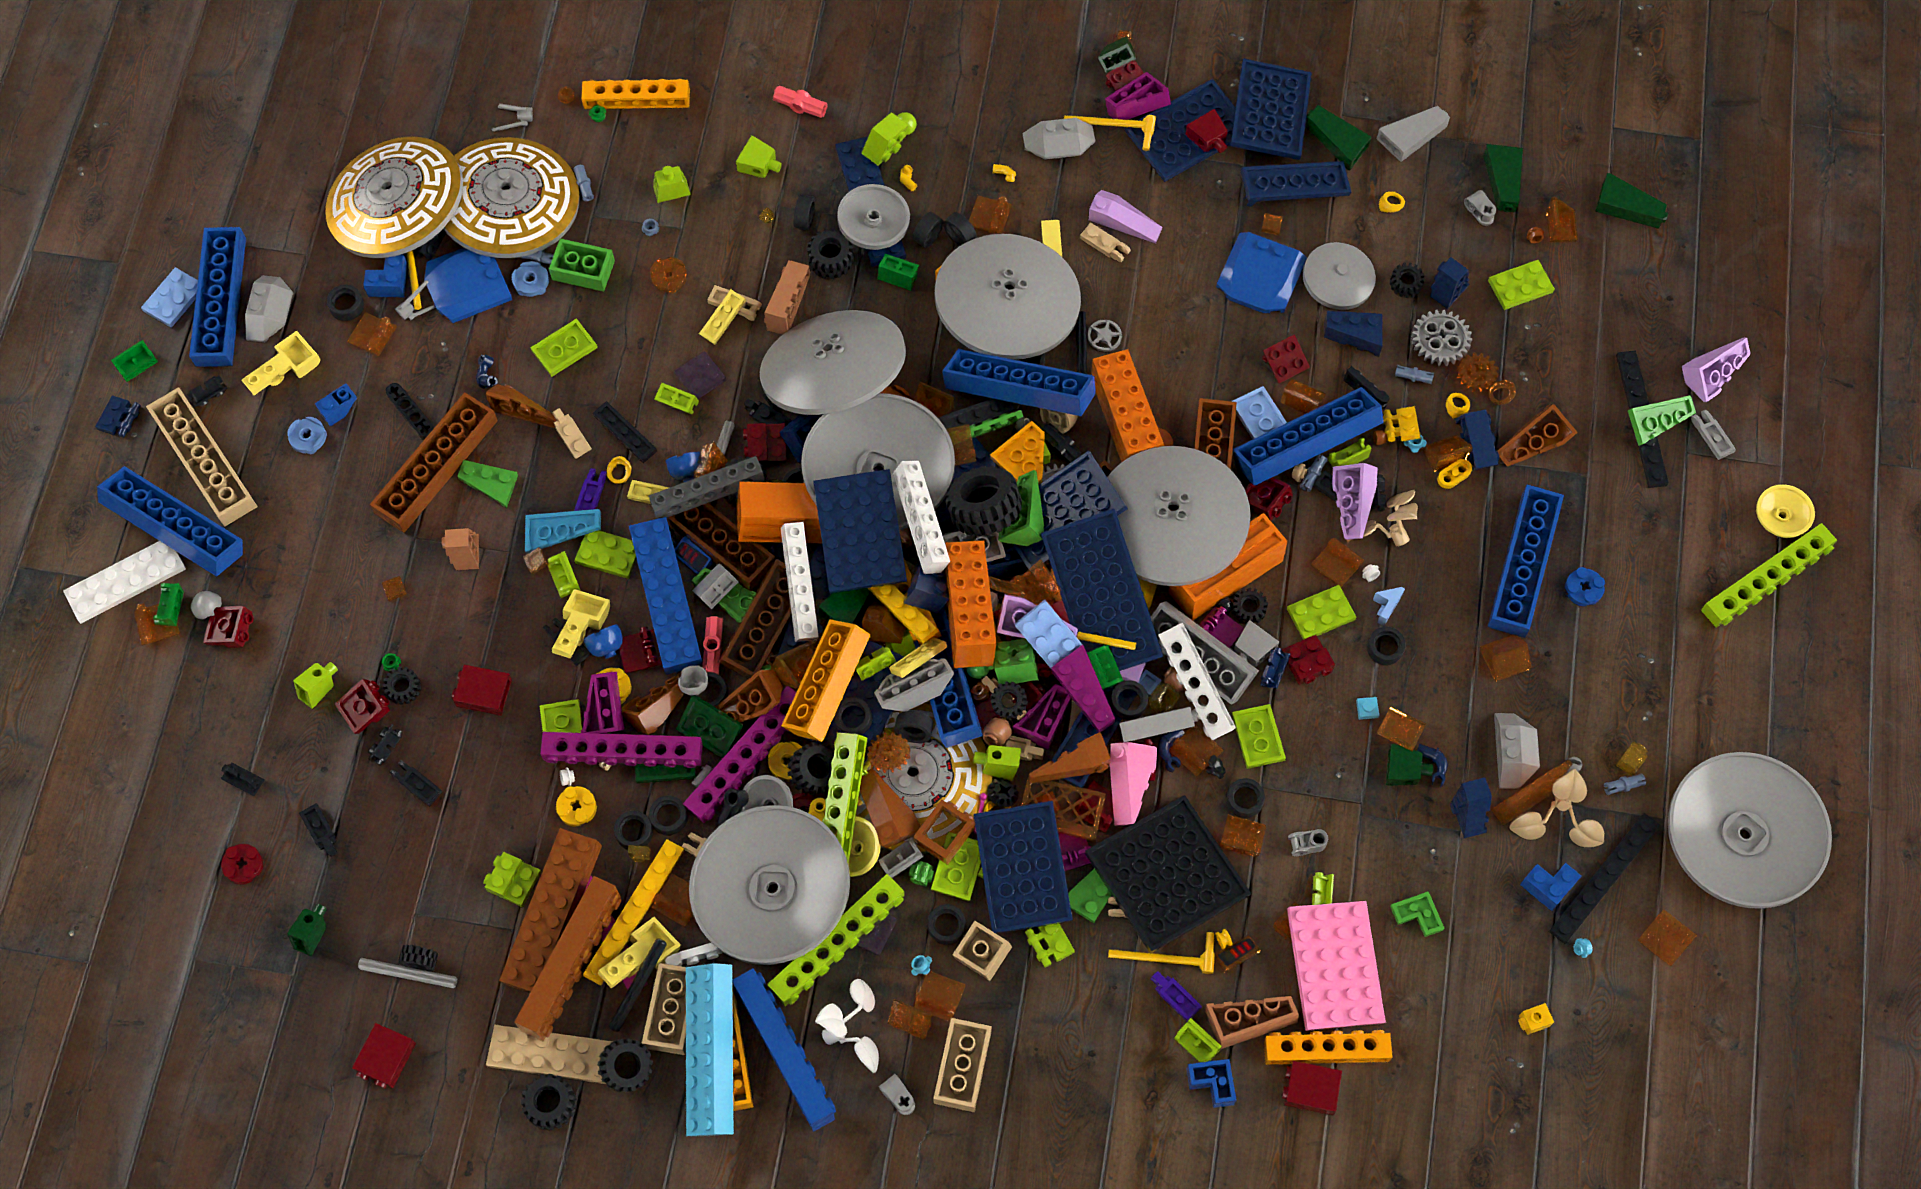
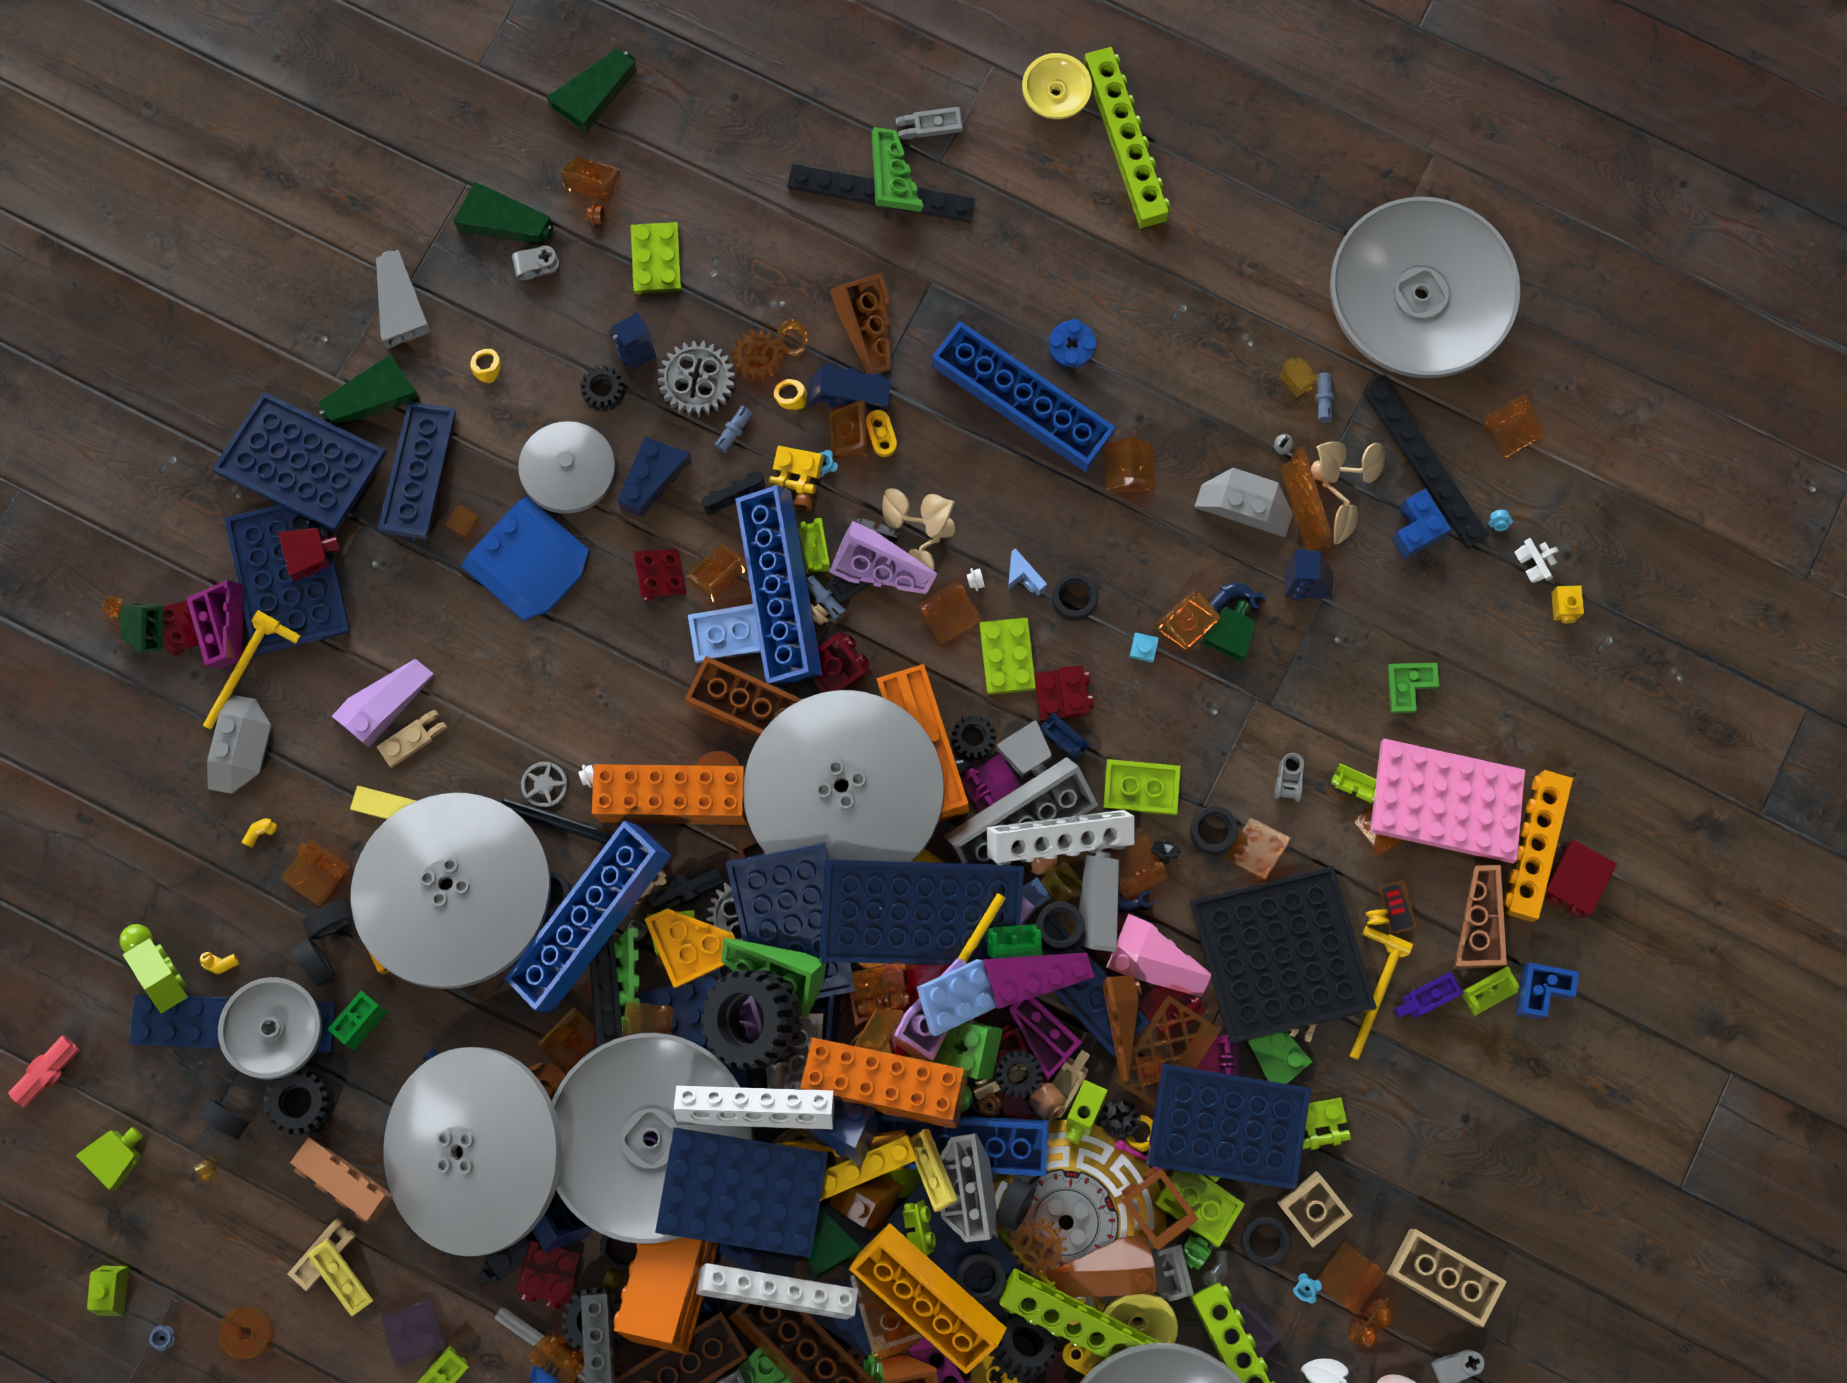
camera: 75 degrees left, 10 degrees up
(914, 898) = (1220, 1271): none -> clear arm
(1564, 988) = (1529, 551): none -> white hips
(1713, 369) = (846, 87): lavender wedge -> none

